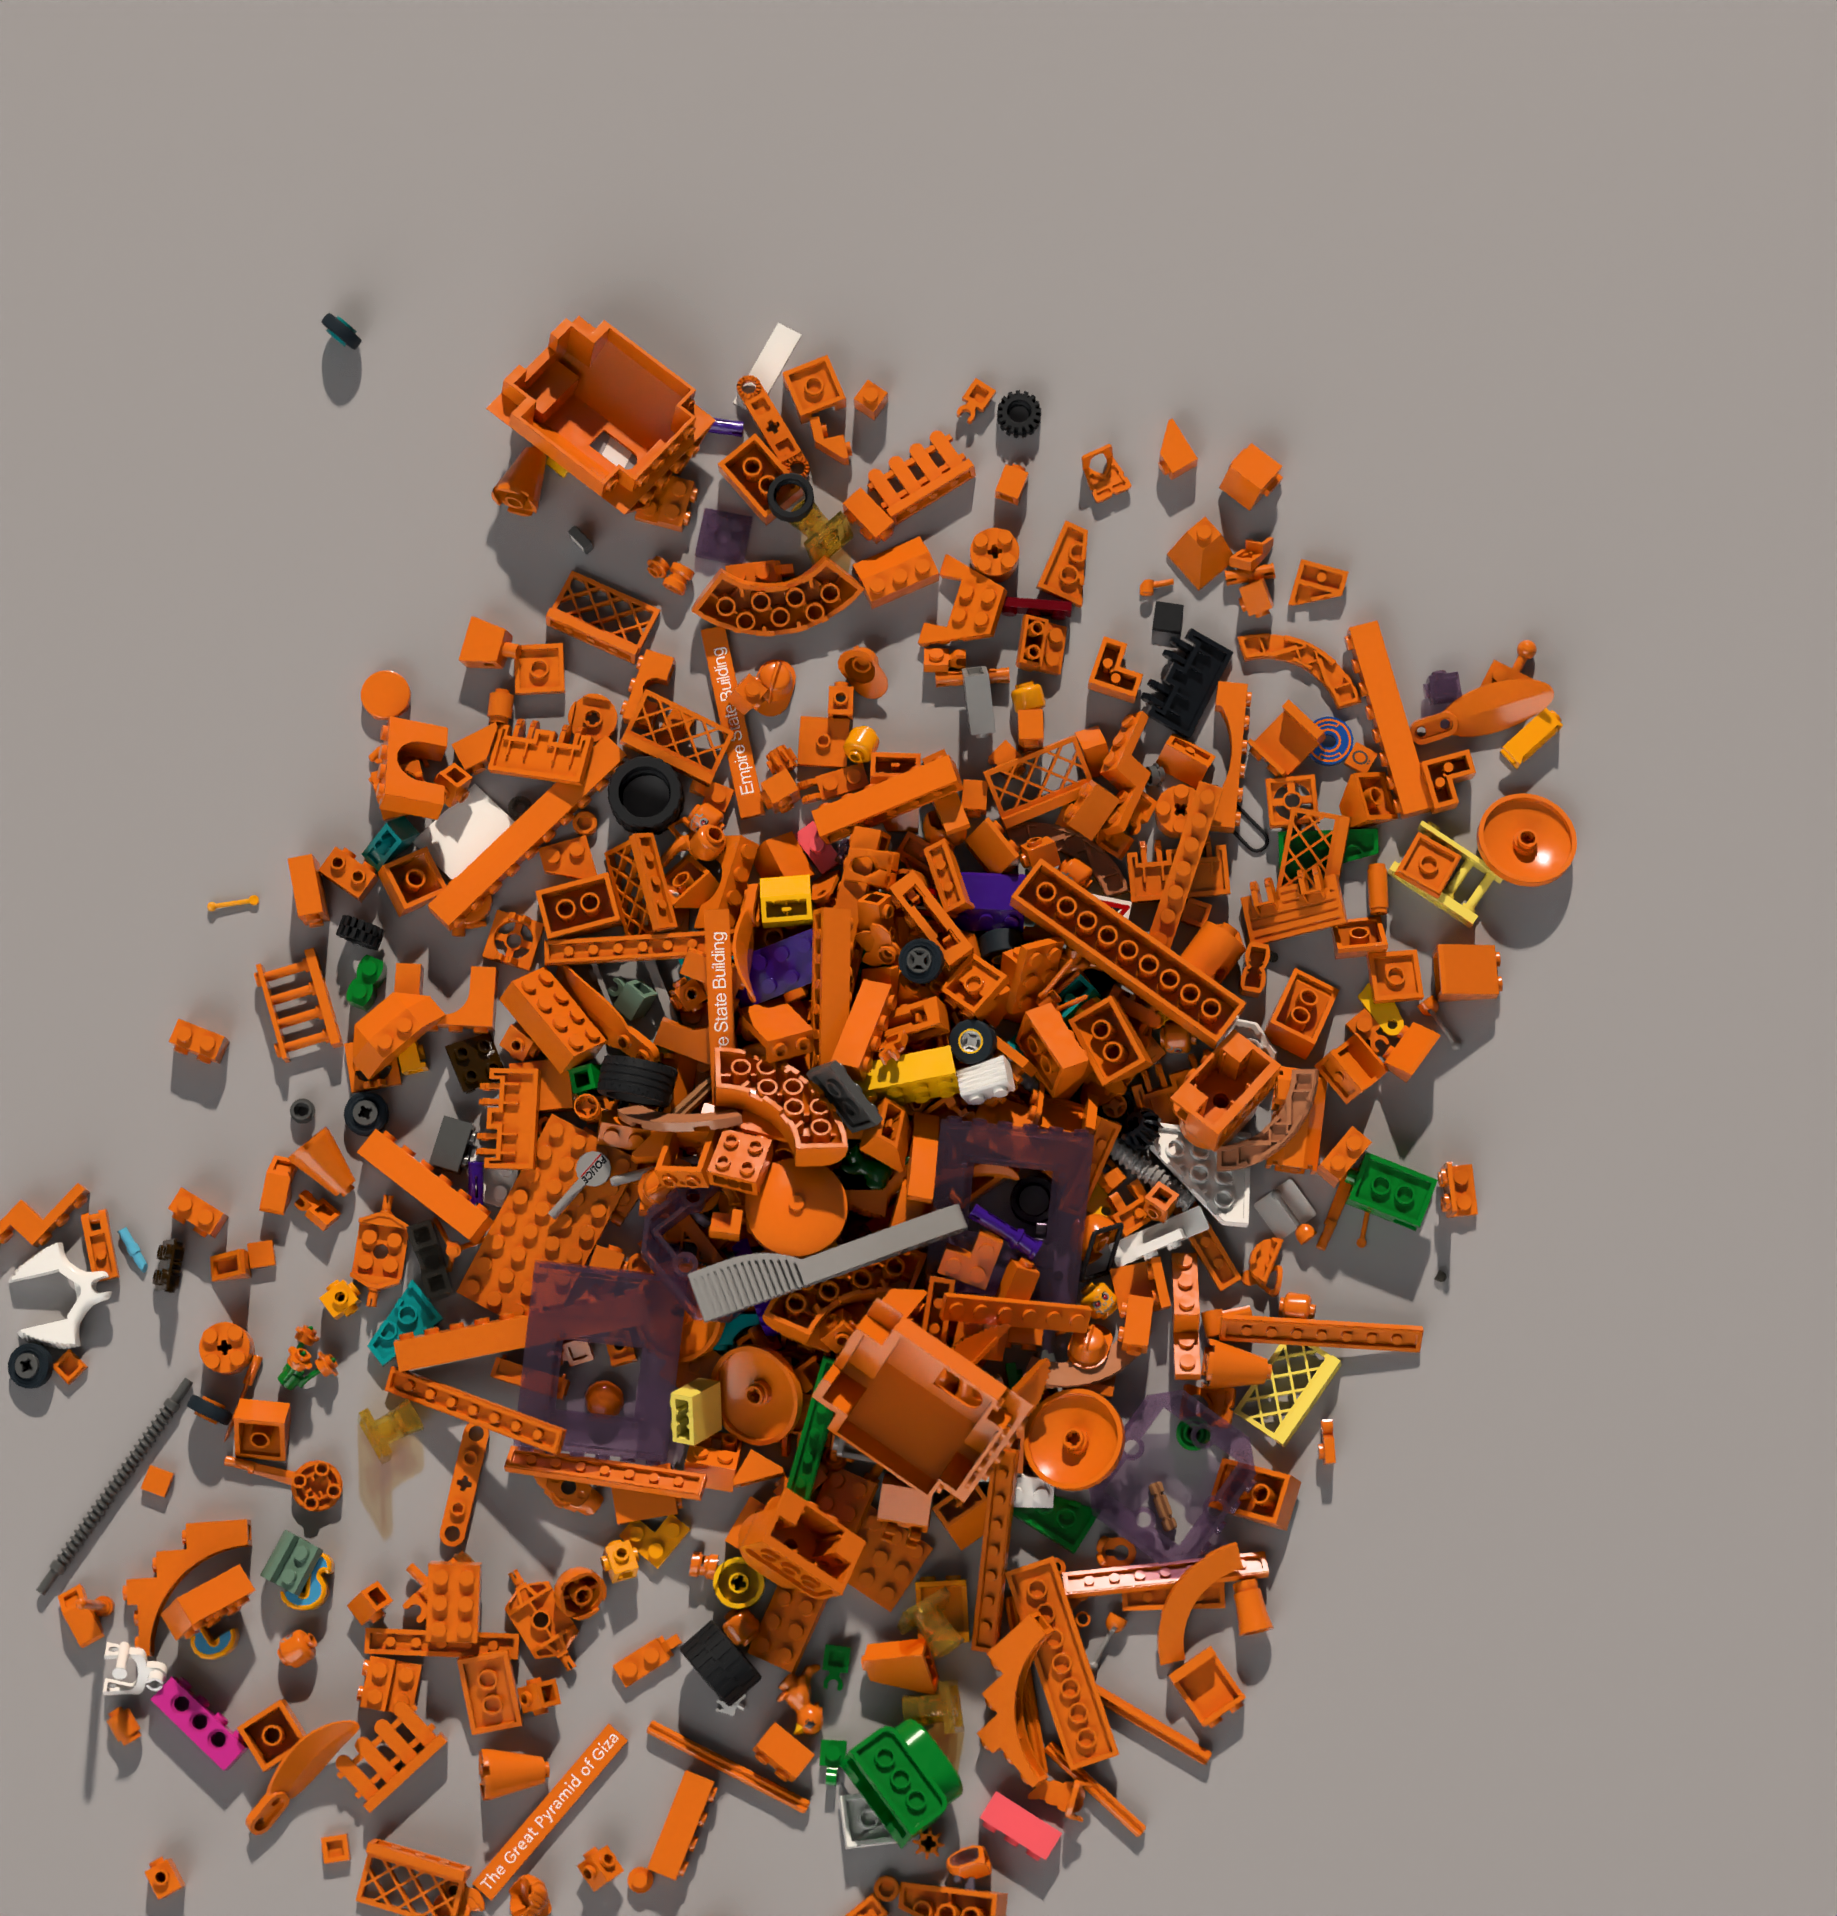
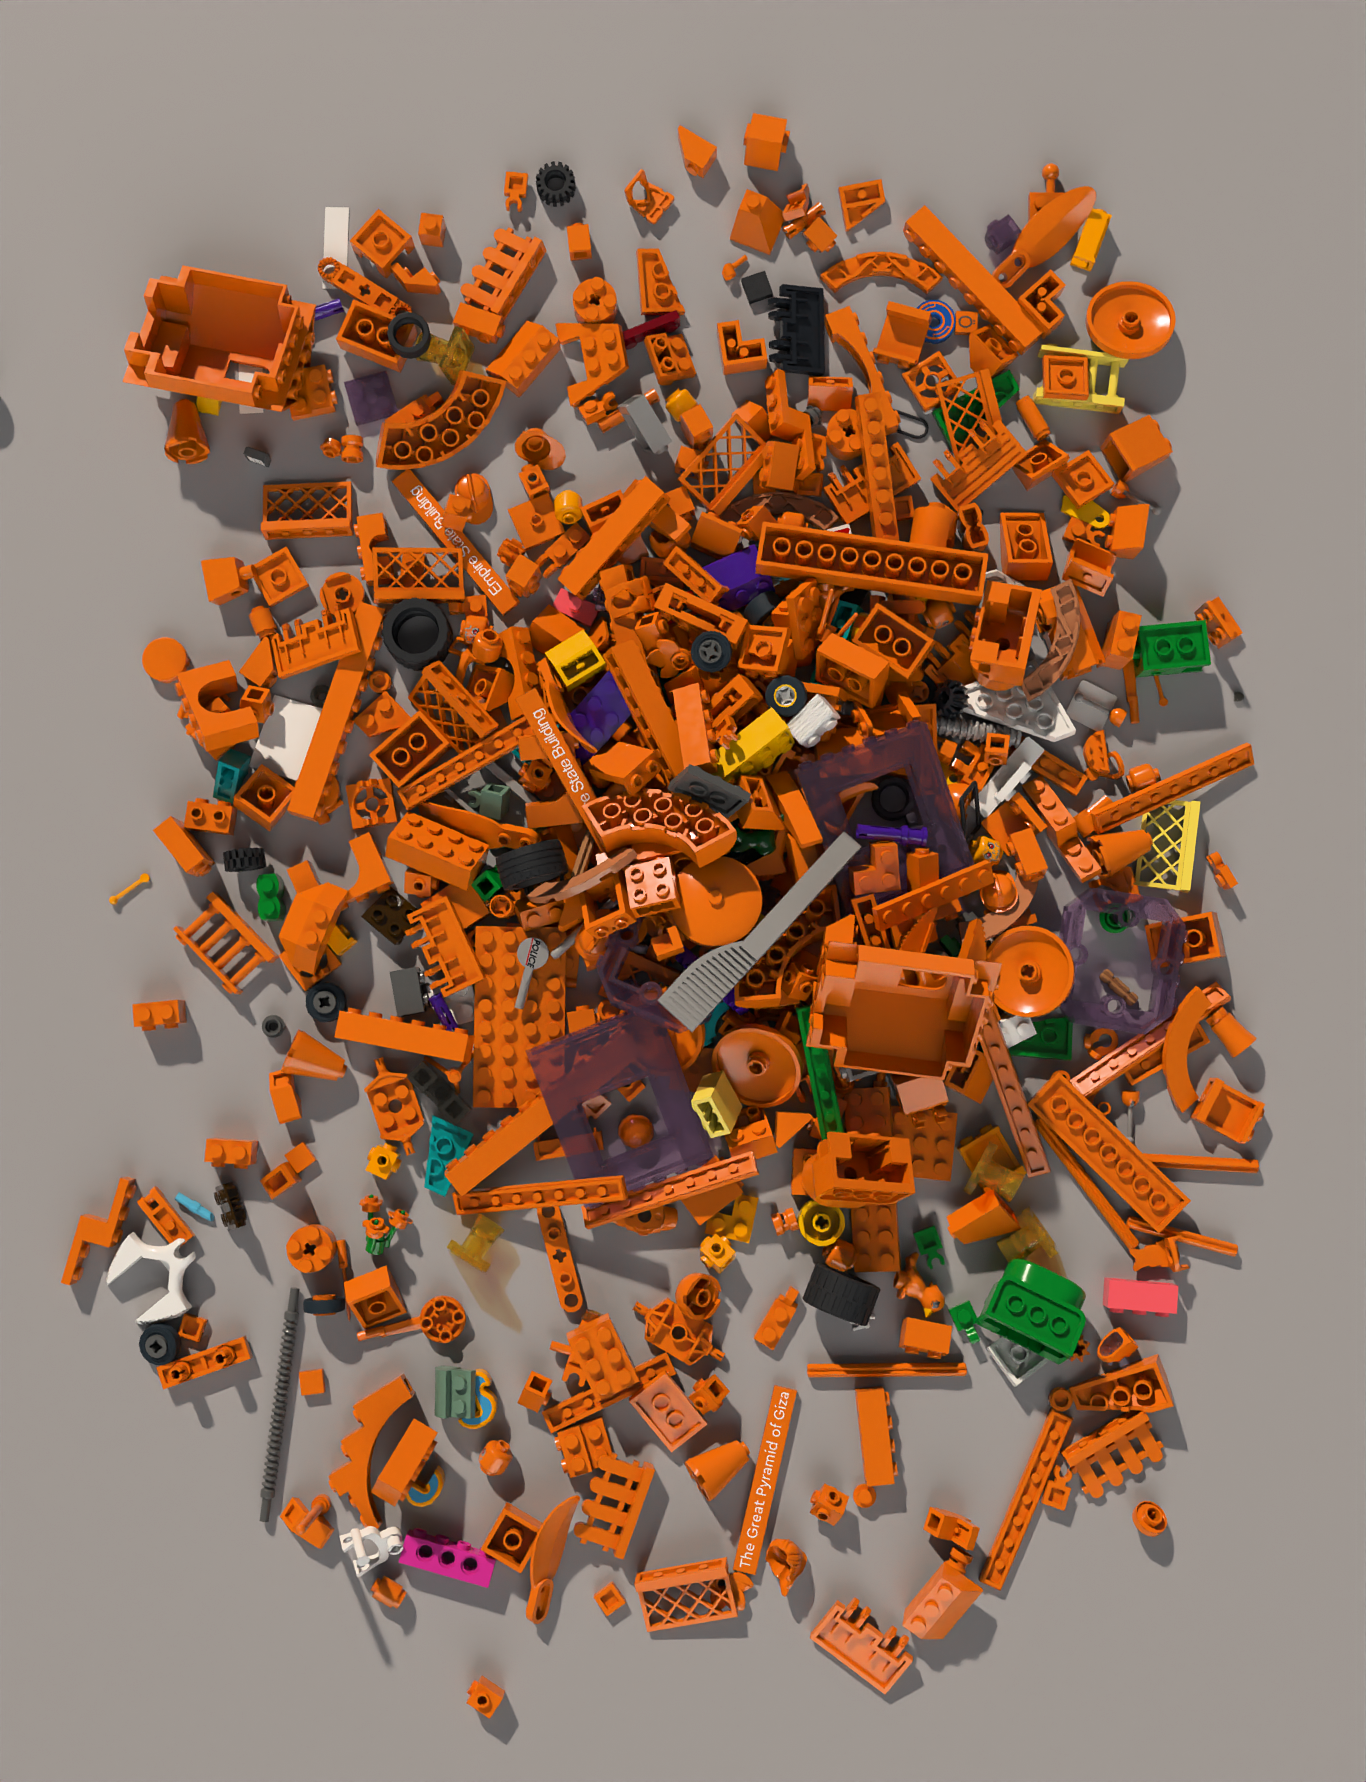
camera: 30 degrees left, 5 degrees up
(64, 1406) = (204, 1362): none -> orange plate
(318, 1212) = (329, 1100): orange plate -> none
(1006, 1696) = (1078, 1202): orange arch -> none

